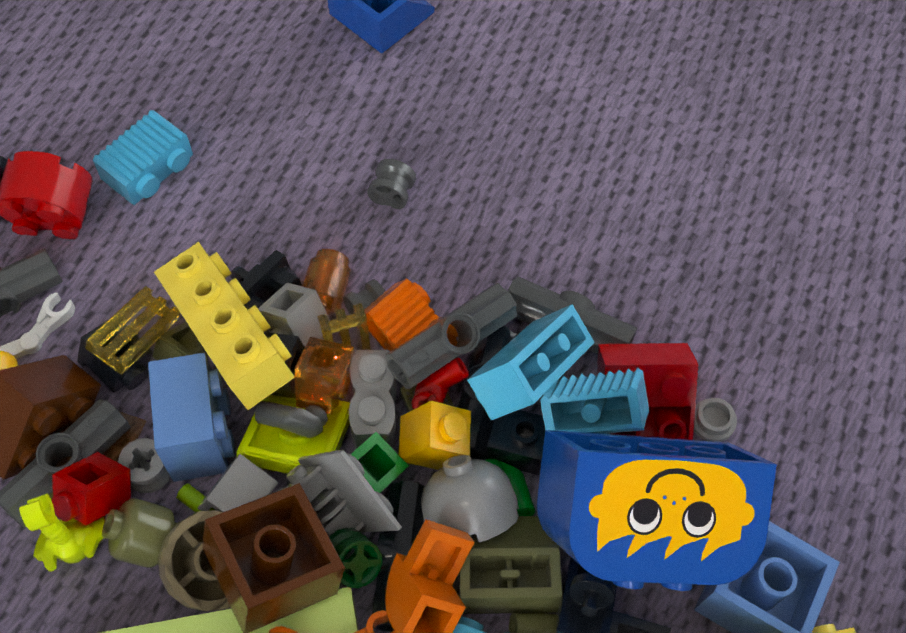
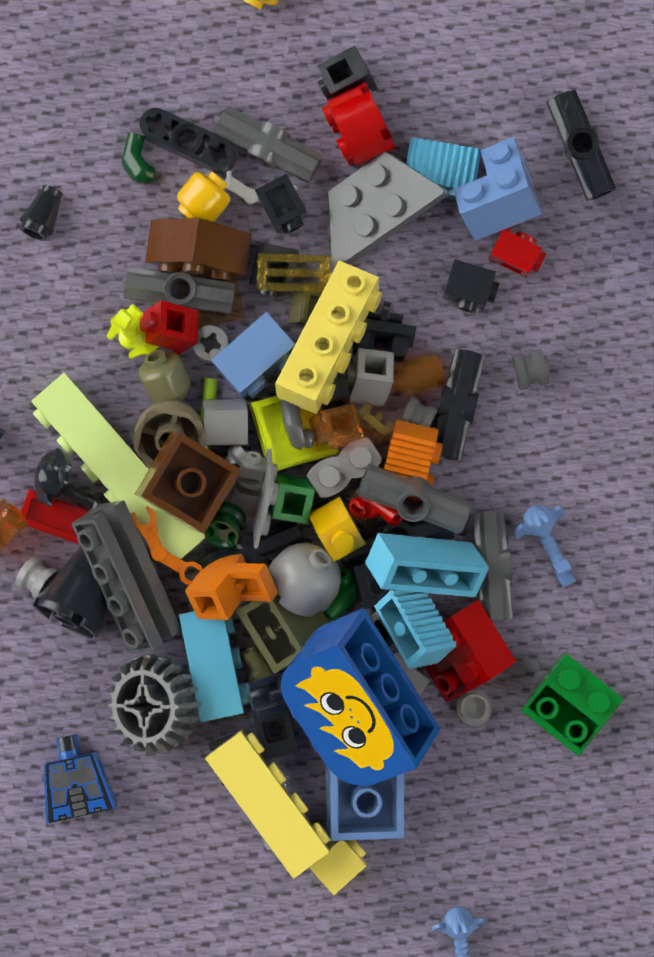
camera: 60 degrees right, 25 degrees up
(60, 309) = (282, 204): none -> black bracket
(131, 219) = (376, 205): none -> wing
(204, 109) = (500, 197): none -> medium blue brick
(216, 41) = (572, 124): none -> black piece
(271, 138) = (517, 252): none -> red brick
(272, 191) = (470, 286): none -> black brick
(375, 256) = (458, 402): none -> black piece
(550, 251) = (539, 522): none -> medium blue piece
(759, 313) = (571, 704): none -> green slope

